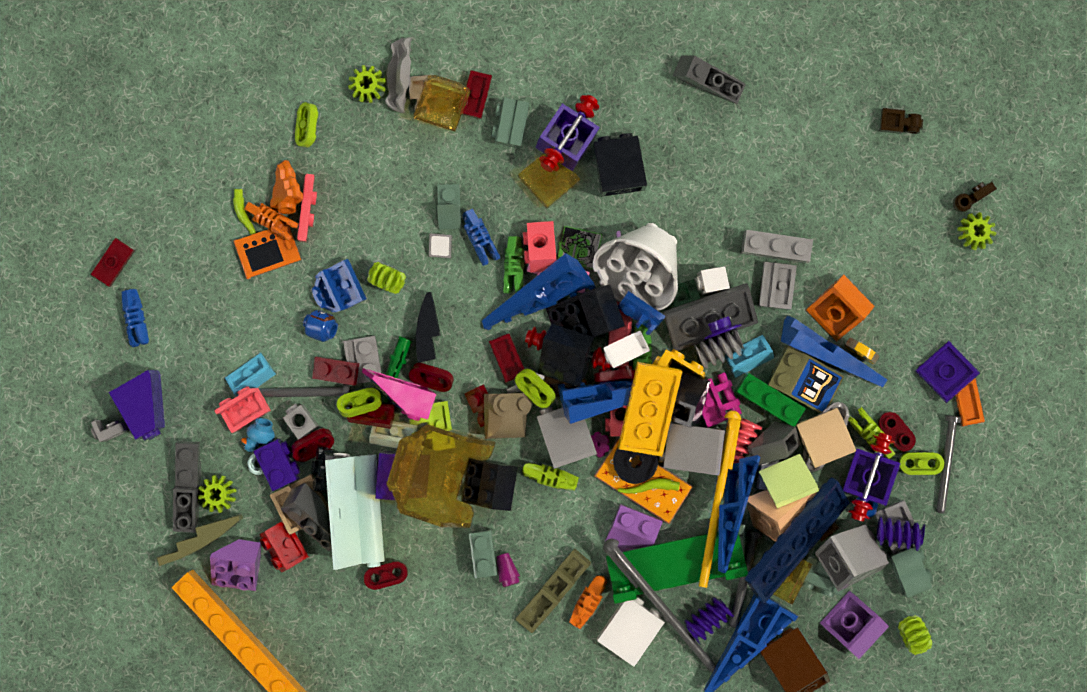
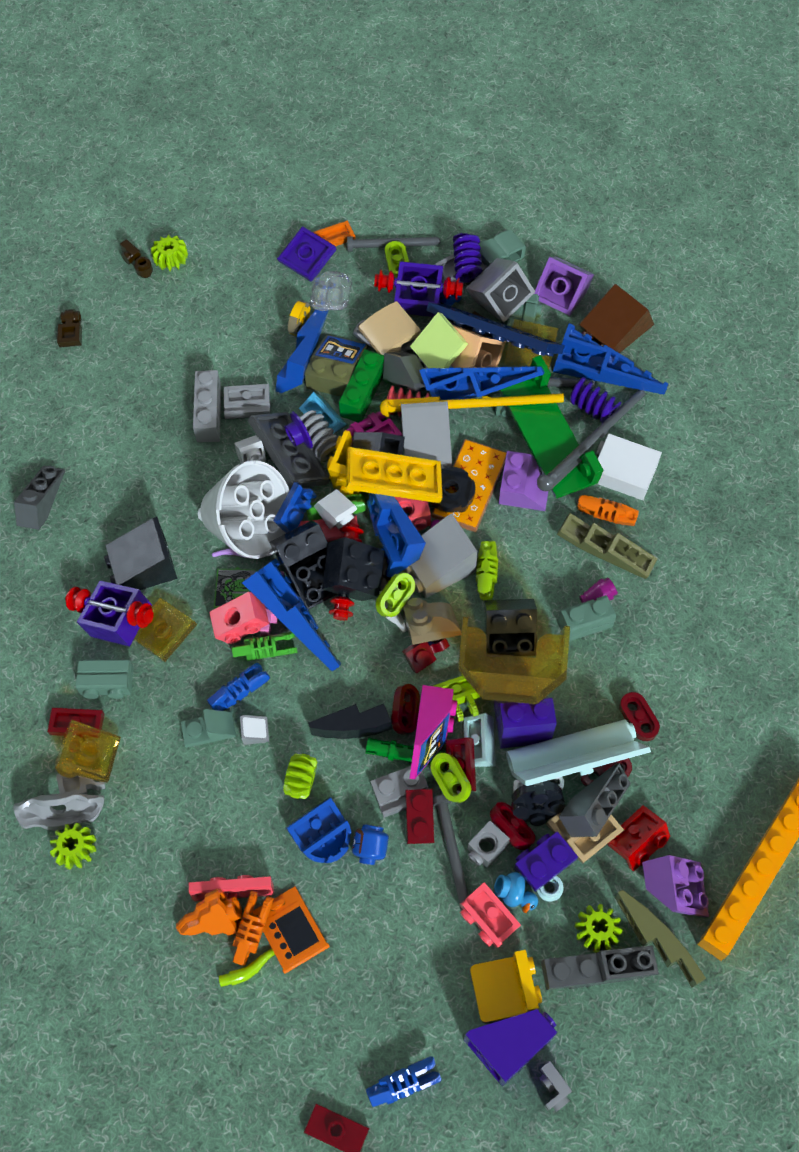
camera: 100 degrees left, 25 degrees down
(187, 410) = (505, 987): none -> yellow bracket
(250, 374) = (446, 920): medium azure slope -> none
(306, 125) = (131, 910): lime plate -> none
(506, 357) = (367, 635): dark red plate -> none
(622, 374) = (362, 514): dark red plate -> none
(659, 483) = (469, 466): lime animal -> none
(840, 308) = (261, 345): orange slope -> none
(868, 430) = (375, 302): lime hinge -> none
(888, 388) = (330, 291): none -> clear piece
(897, 431) = (367, 282): dark red plate -> none
(915, 635) = (558, 235): lime gear -> none

